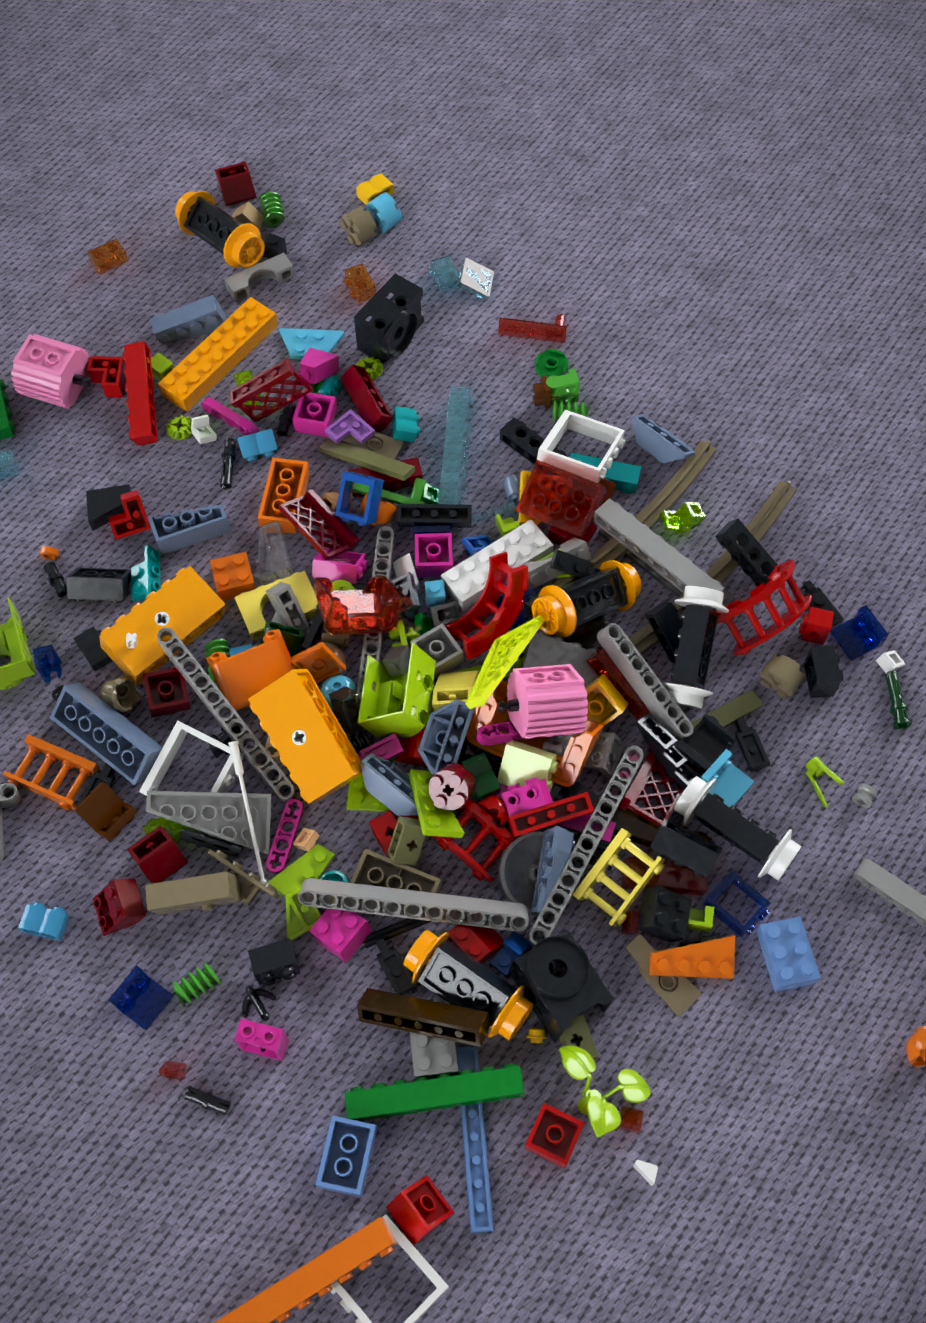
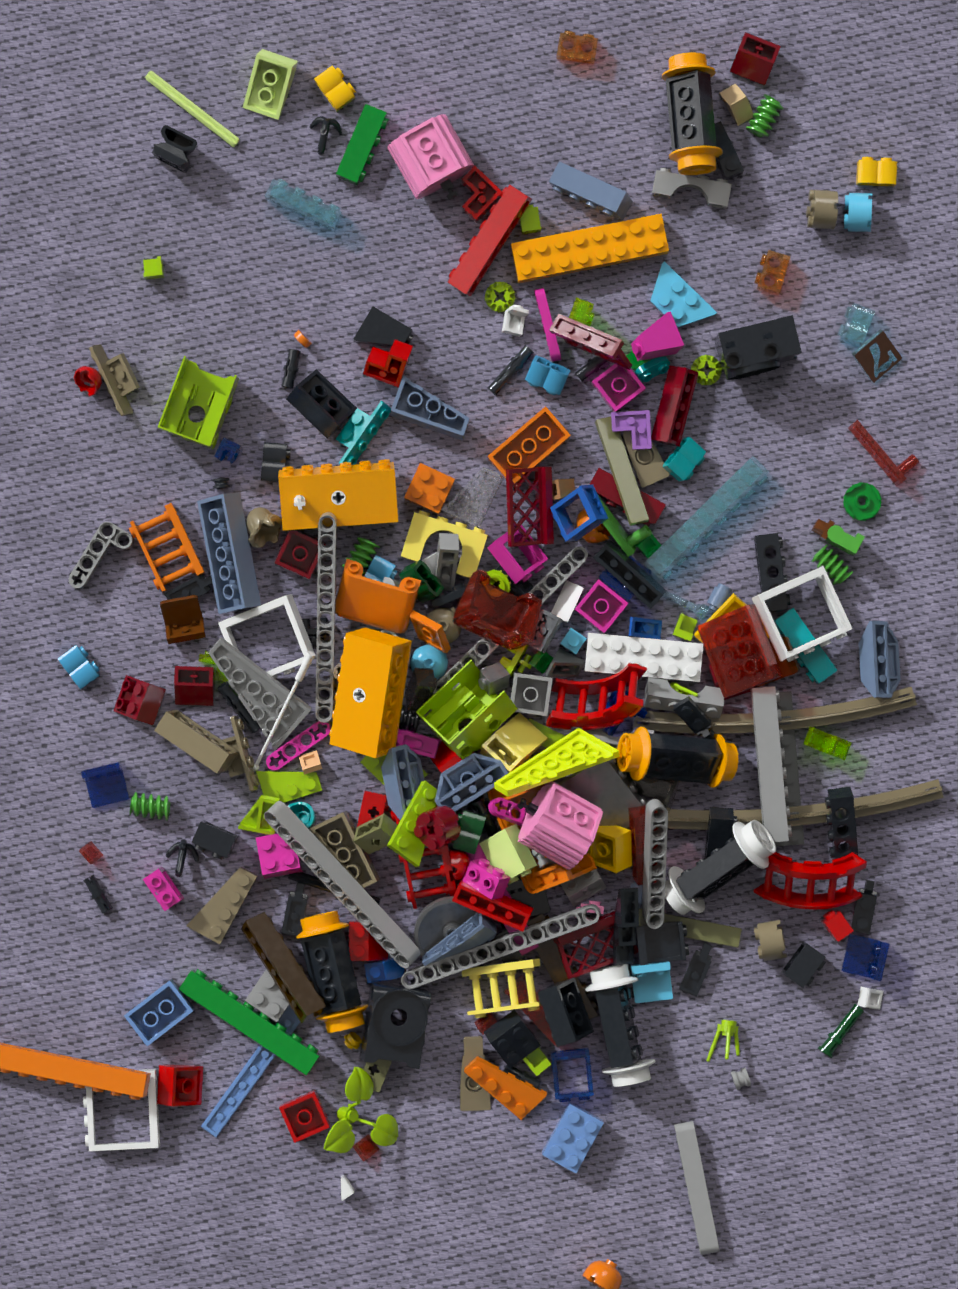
camera: 35 degrees right, 25 degrees up
(329, 1019) = (220, 911): none -> dark tan wedge

